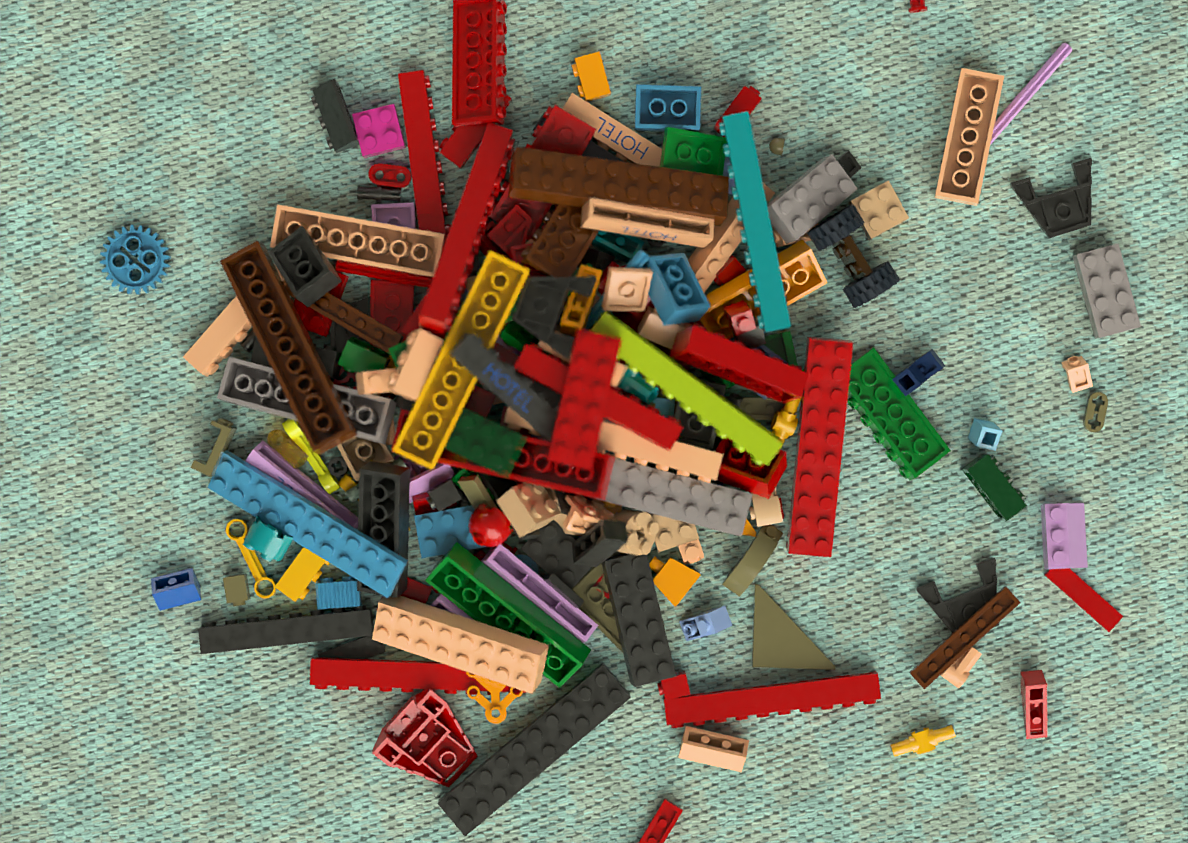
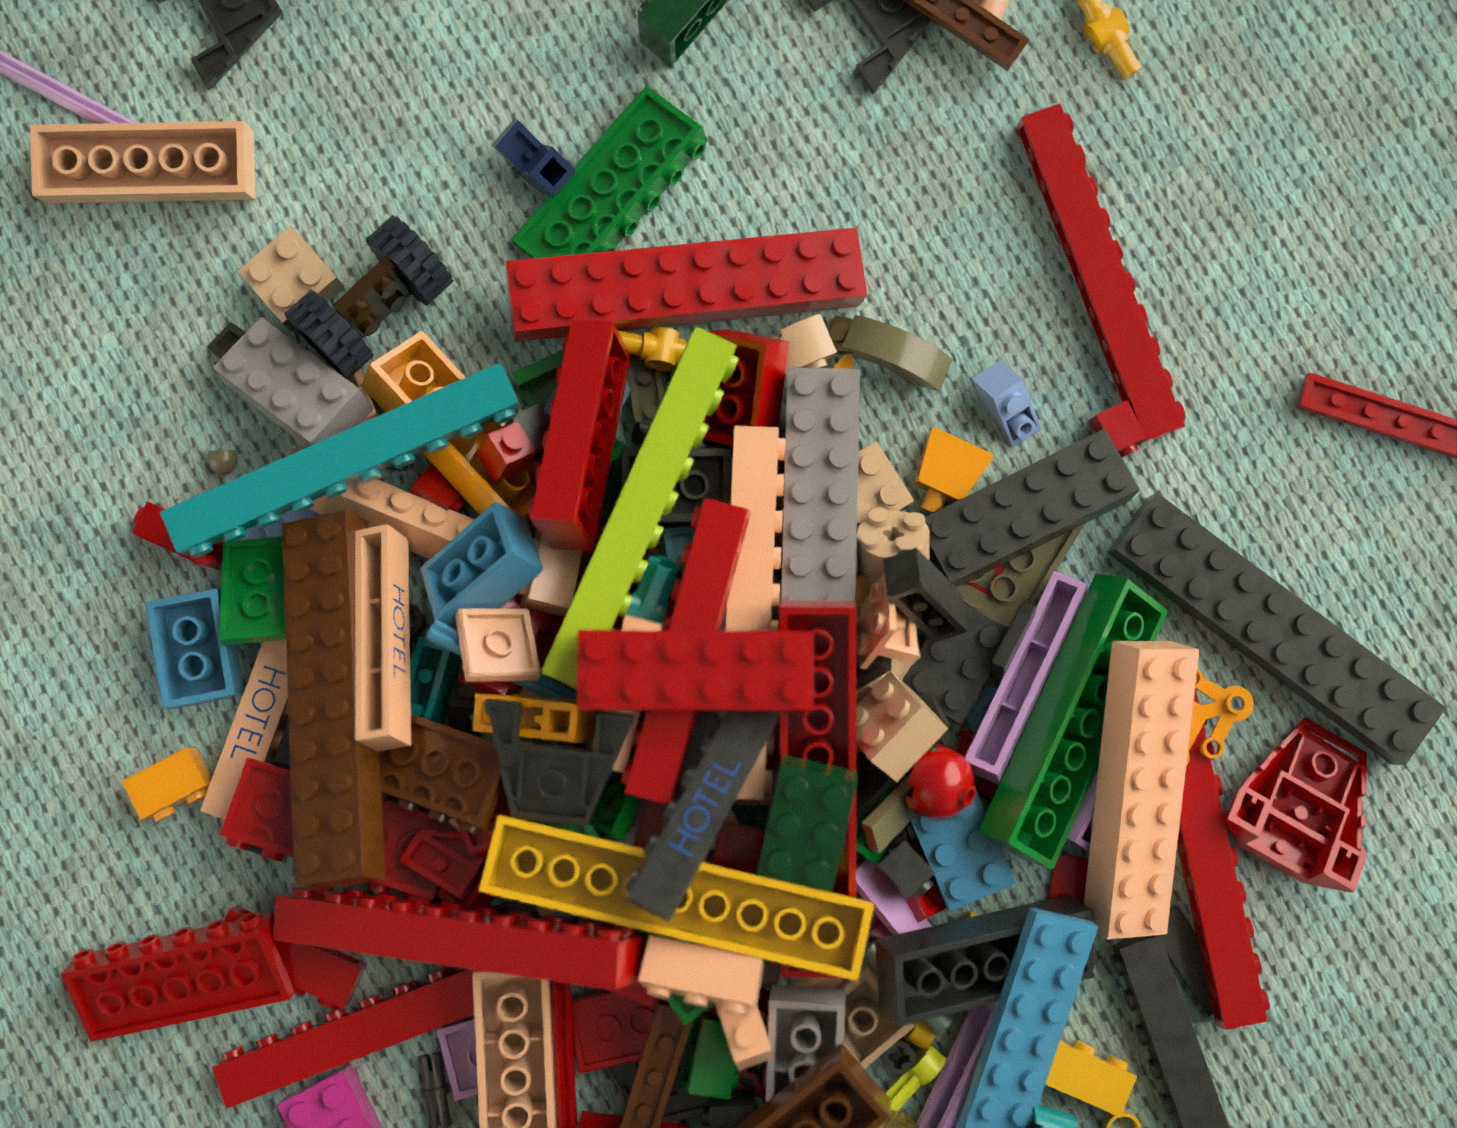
camera: 115 degrees left, 5 degrees down
(337, 593) = (1105, 1008): dark azure brick -> none
(390, 175) = (401, 1079): red plate -> none
(691, 552) = (900, 450): light nougat brick -> none
(713, 749) = (1202, 345): light nougat brick -> none
(780, 641) = (1005, 283): olive tile -> none
(984, 434) = (608, 36): medium azure brick -> none

